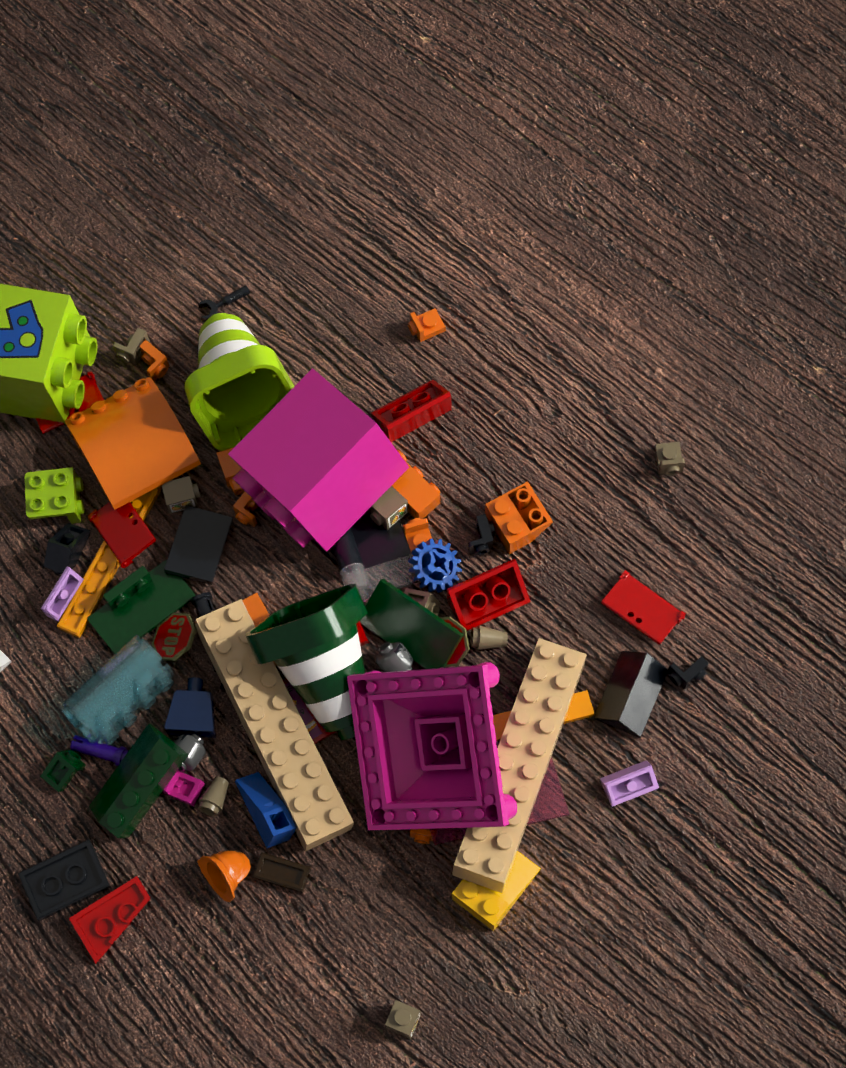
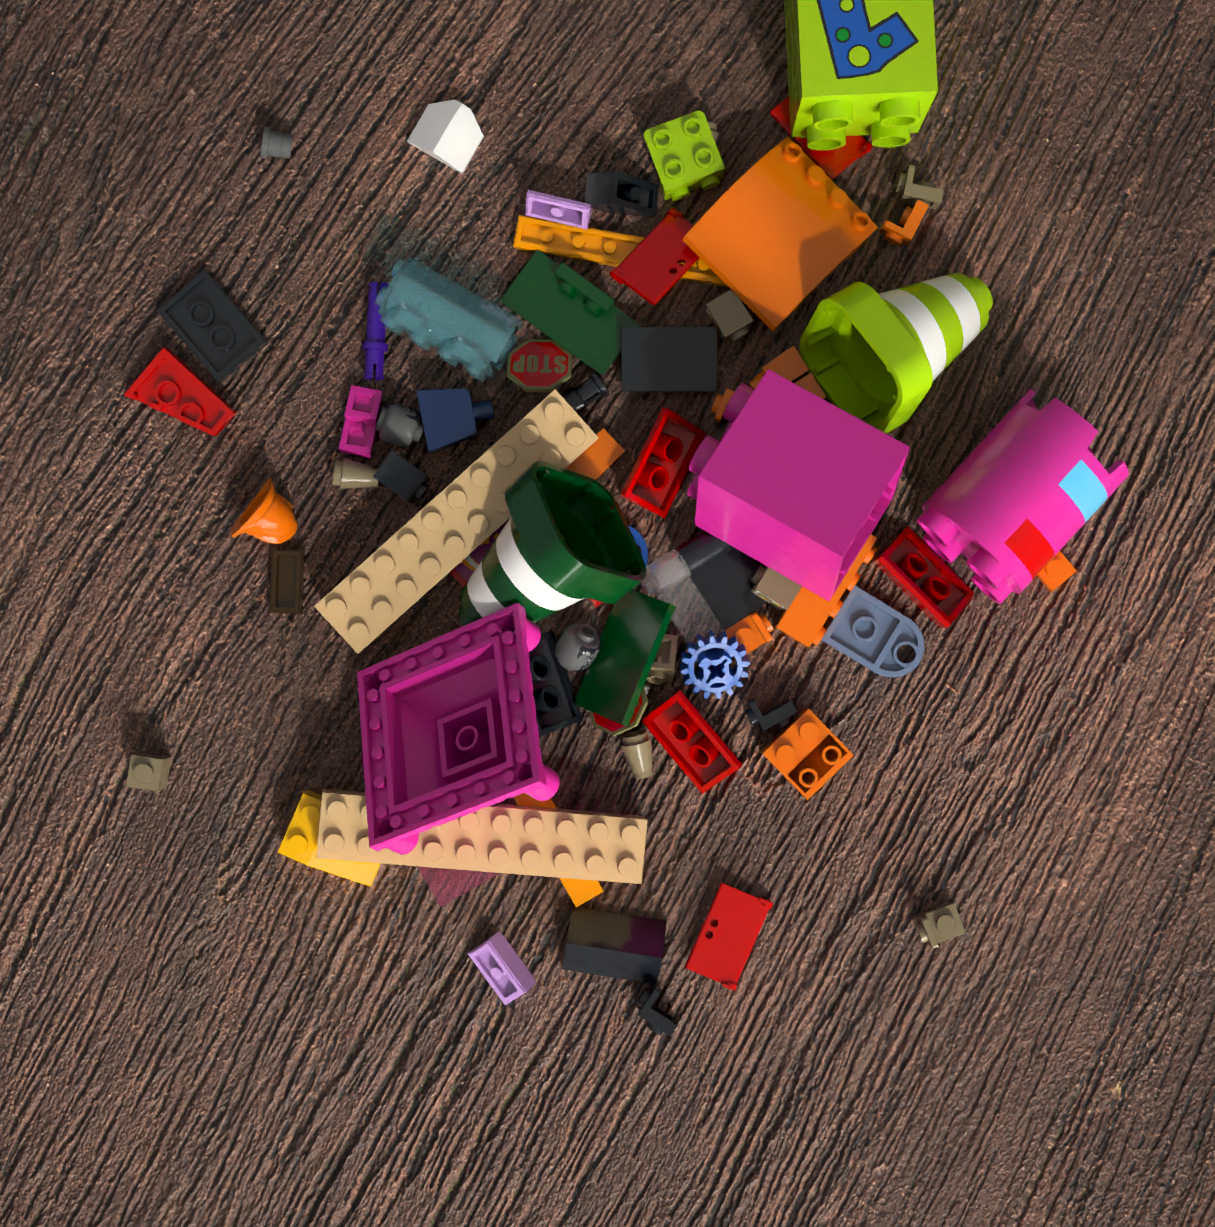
camera: 70 degrees right, 20 degrees up
(62, 769) = (341, 282): dark green bracket -> none
(137, 782) = (343, 376): dark green slope -> none
(228, 299) = (1018, 292): black piece -> none
(228, 757) = (402, 478): none -> black slope
(266, 810) = (354, 540): blue slope -> none
(273, 568) = (662, 463): none -> red slope
(370, 323) = (1019, 496): none -> dark pink brick
(442, 454) = (873, 633): none -> sand blue tile

